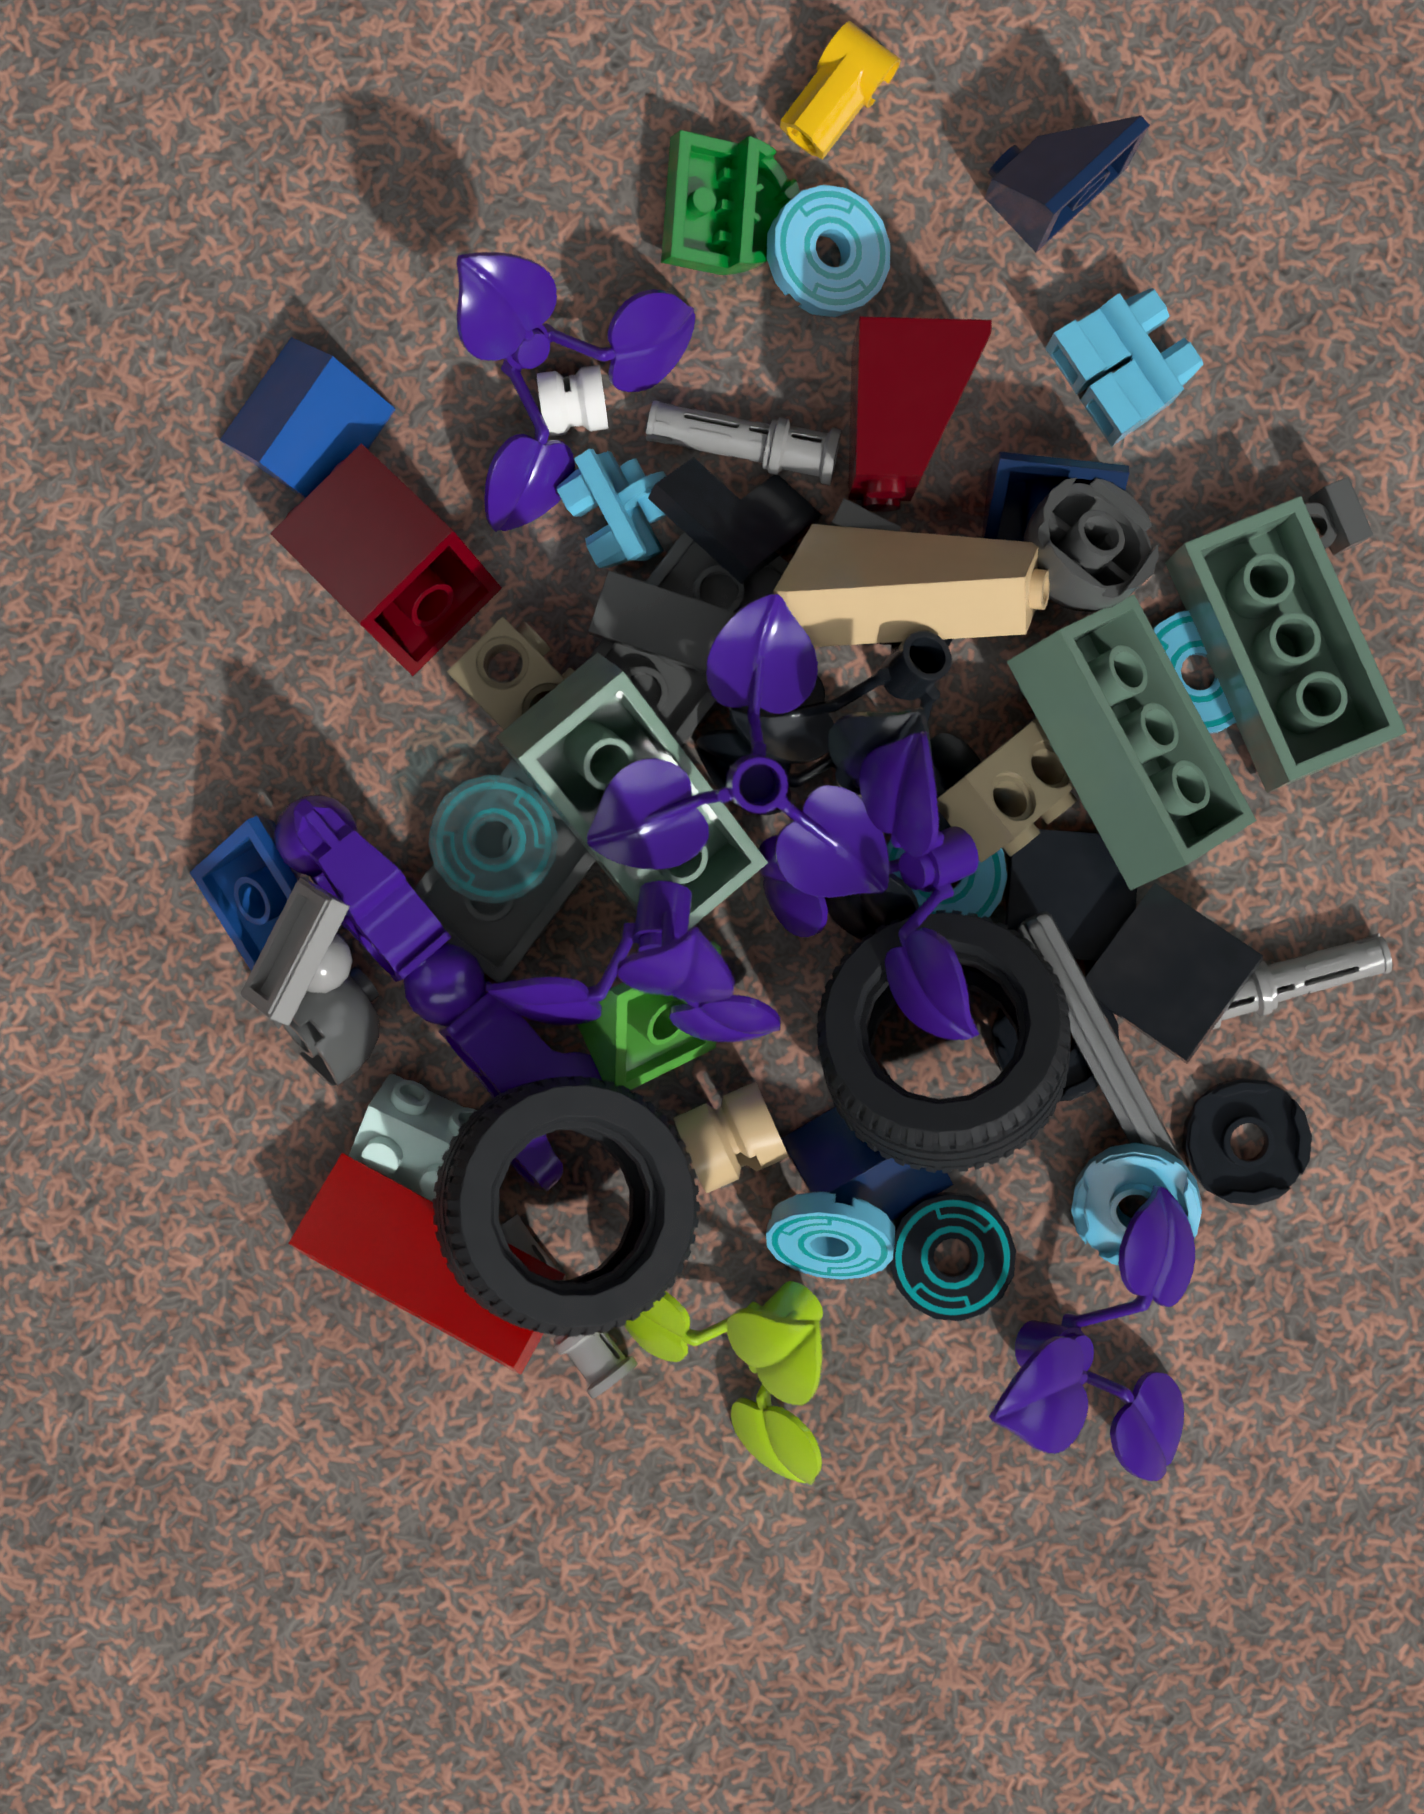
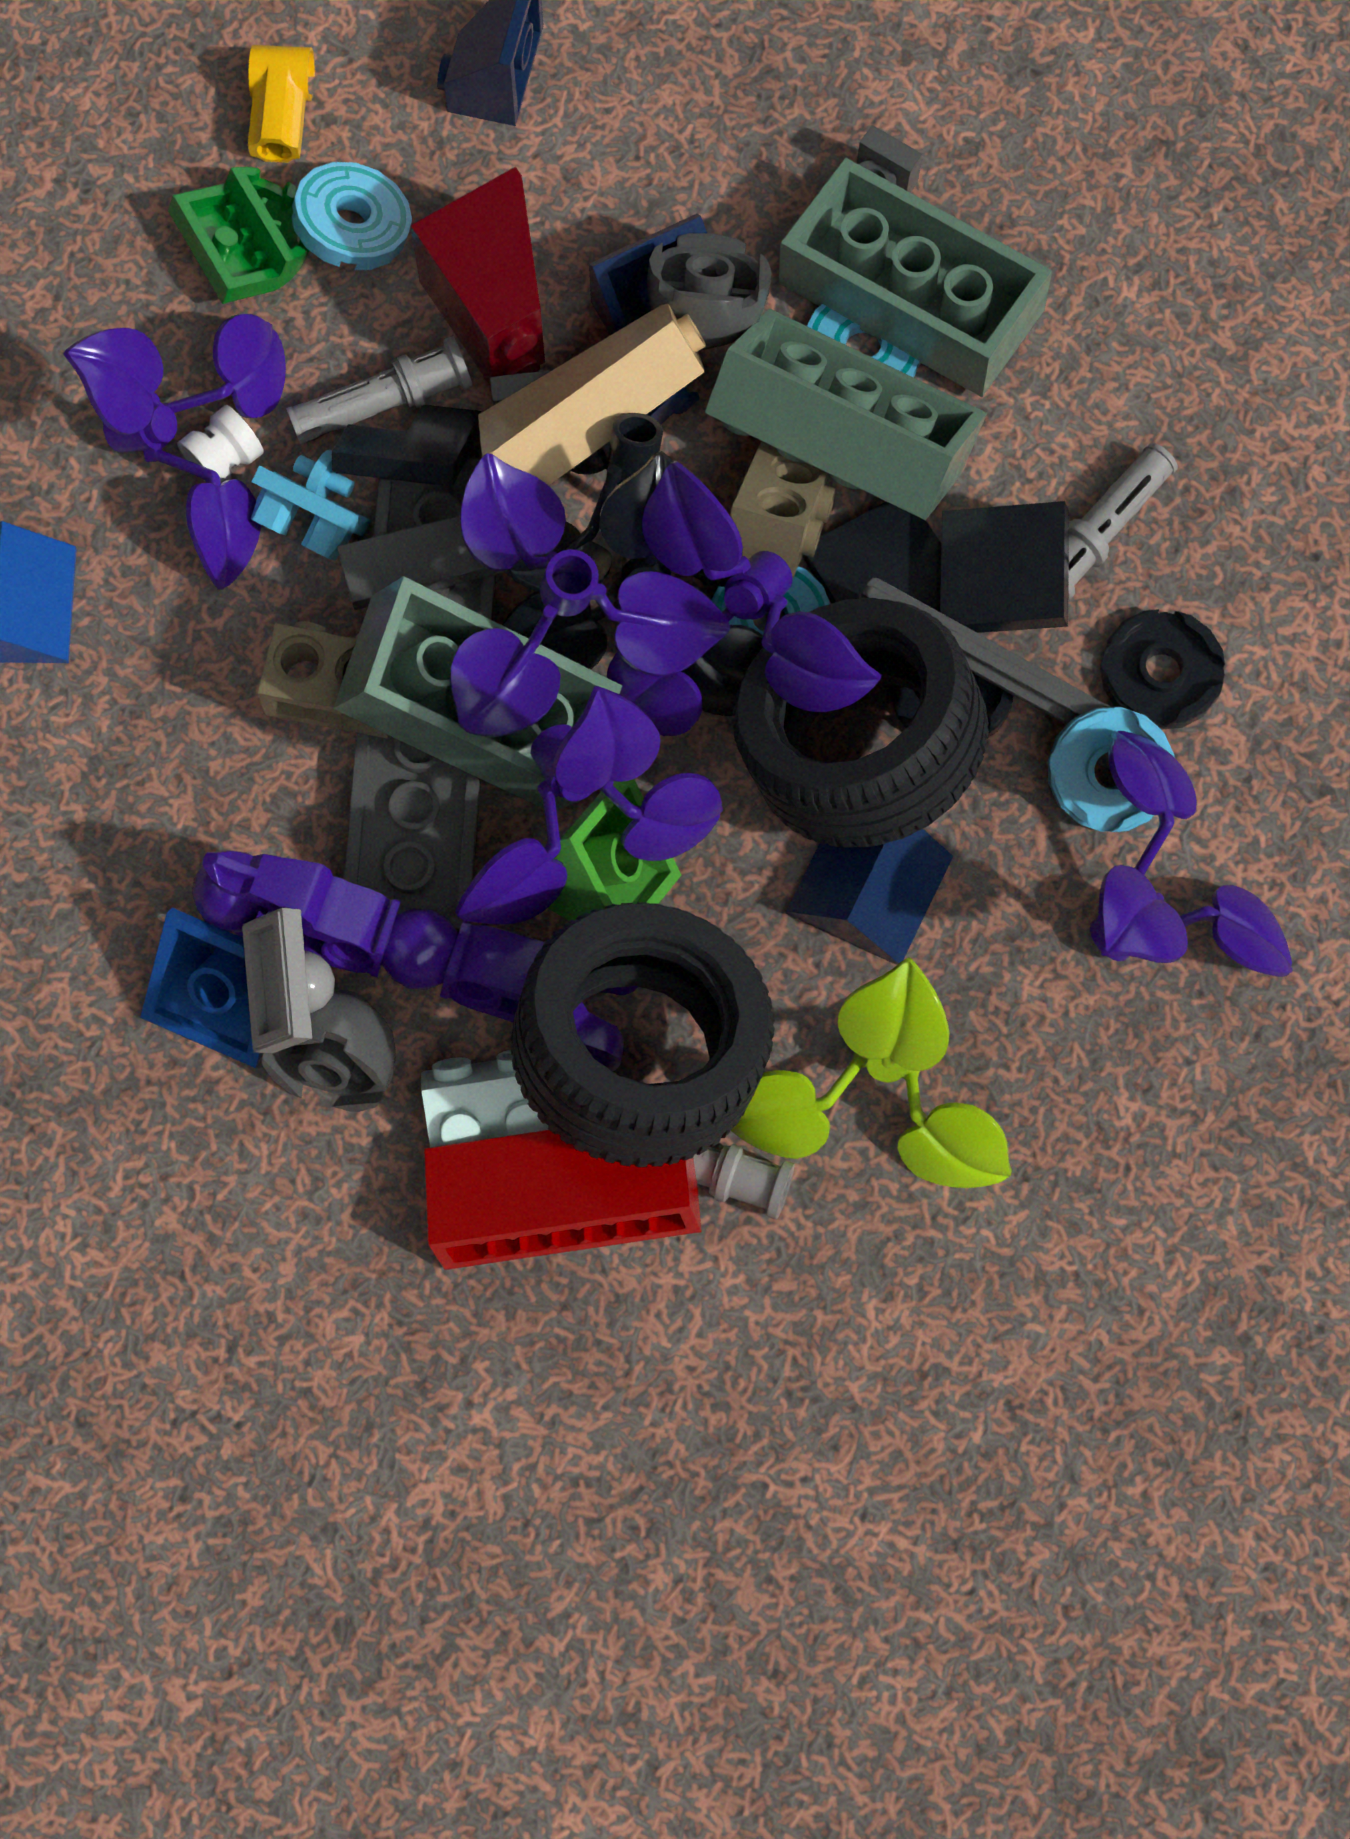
camera: 30 degrees left, 15 degrees down
(387, 559) = (148, 655): dark red slope -> none
(455, 831) = (391, 849): clear light blue tile -> none
(730, 1137) = (753, 913): tan wheel -> none
(830, 1237) = (861, 924): medium azure tile -> none
(989, 1264) = (1000, 876): black tile -> none
(1117, 337) = (639, 158): medium azure hips -> none

